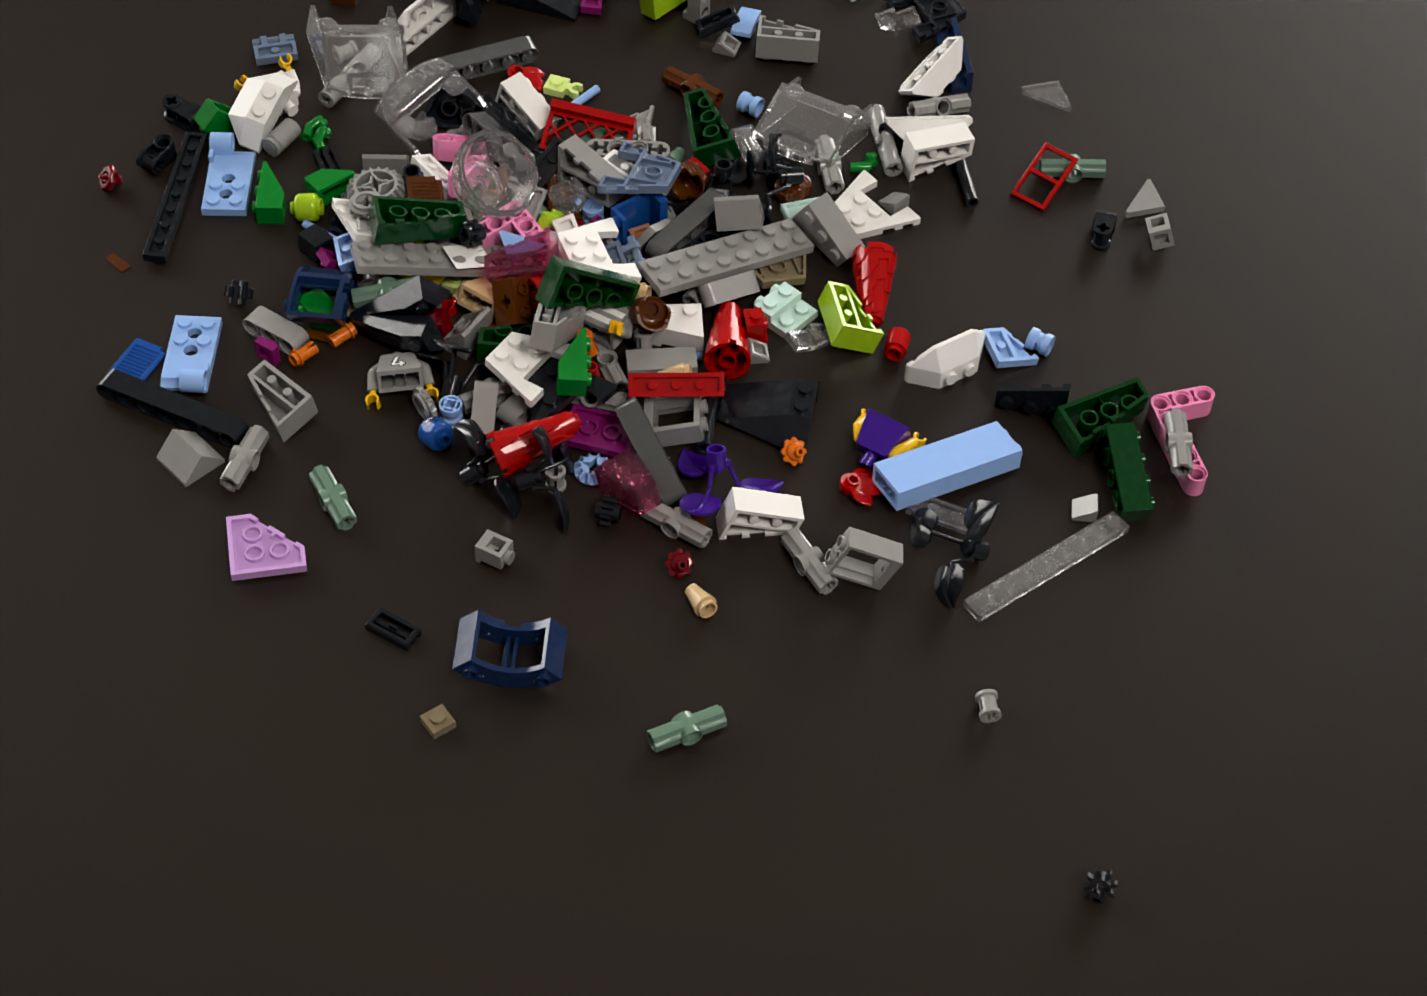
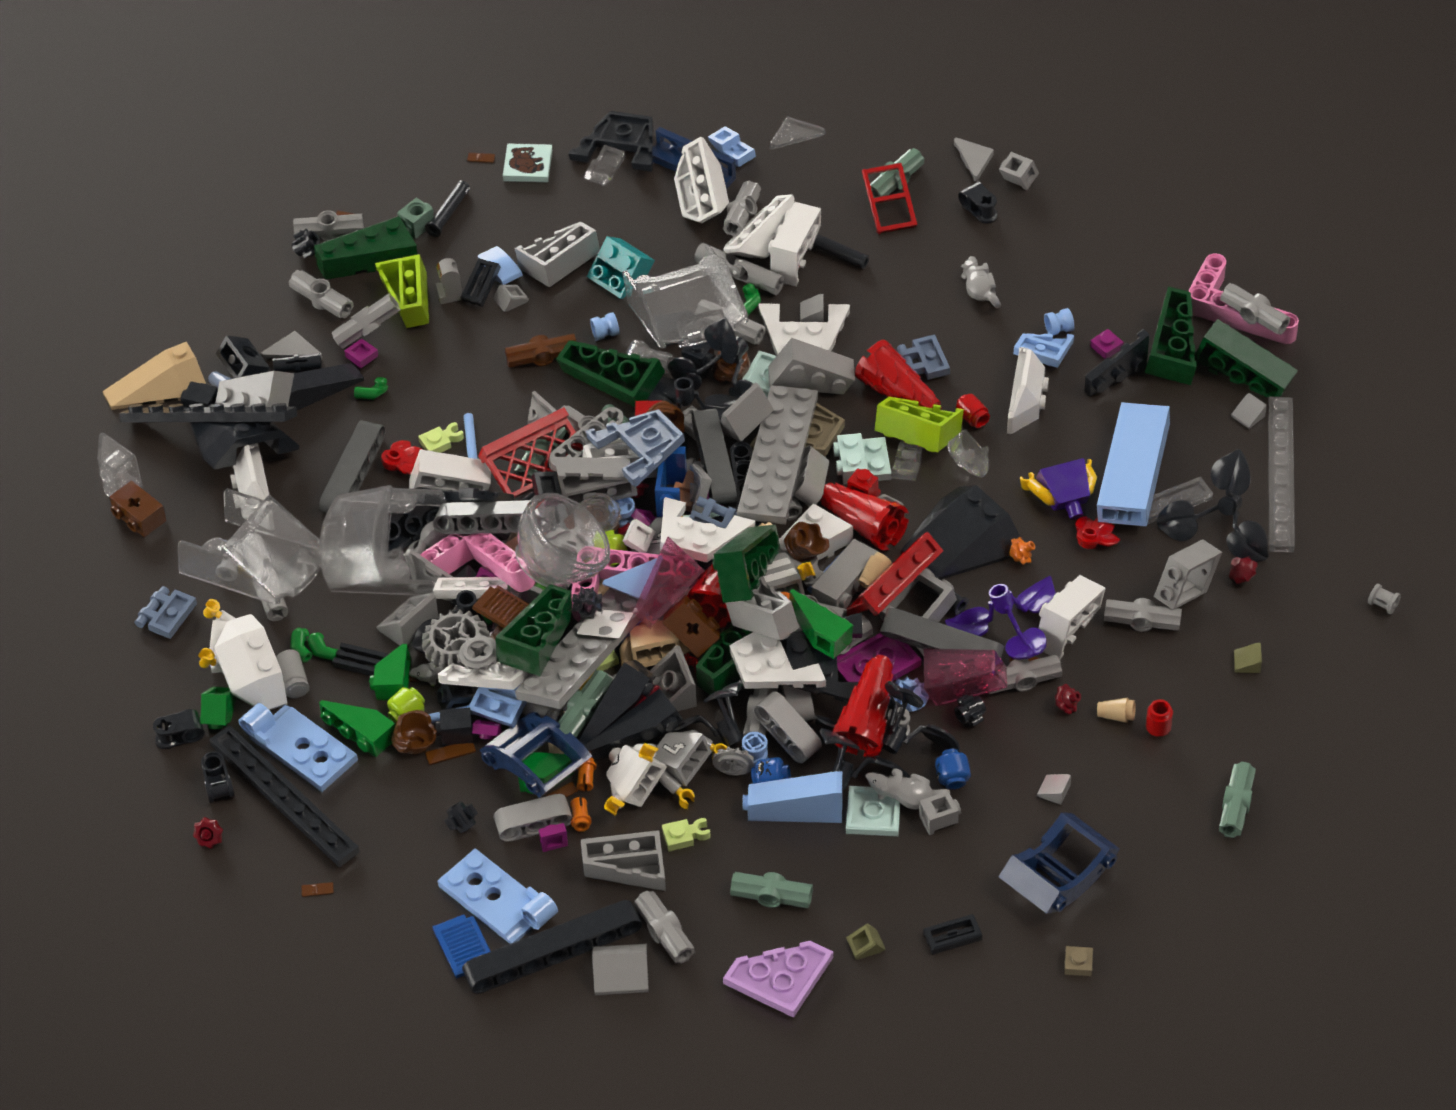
camera: 45 degrees left, 0 degrees up
(286, 223) = (413, 732): none -> reddish brown hair
(295, 256) = (449, 752): none -> reddish brown window
(339, 582) = (865, 942): none -> olive slope
(341, 419) = (681, 834): none -> yellowish green plate
(354, 359) = (632, 775): none -> white torso
(426, 462) = (796, 799): none -> light blue slope
(427, 141) = (422, 568): none -> light grey tile
(464, 514) = (870, 814): none -> light aqua tile
(492, 516) = (905, 790): none -> light grey animal
(543, 534) = (952, 769): none -> blue head
(563, 30) = (373, 392): none -> green arm
(589, 609) = (1055, 787): none -> light grey slope
(713, 629) = (1159, 718): none -> red brick
(817, 74) = (615, 258): none -> teal slope
(837, 655) = (1248, 659): none -> olive slope
(852, 365) = (969, 454): none -> clear hair
(919, 595) = (1242, 569): none -> dark red piece
(921, 292) = (930, 357): none -> sand blue plate
(995, 70) = (729, 144): none -> light blue slope
(1022, 276) = (979, 281): none -> light grey animal
(1055, 379) = (1106, 344): none -> magenta plate

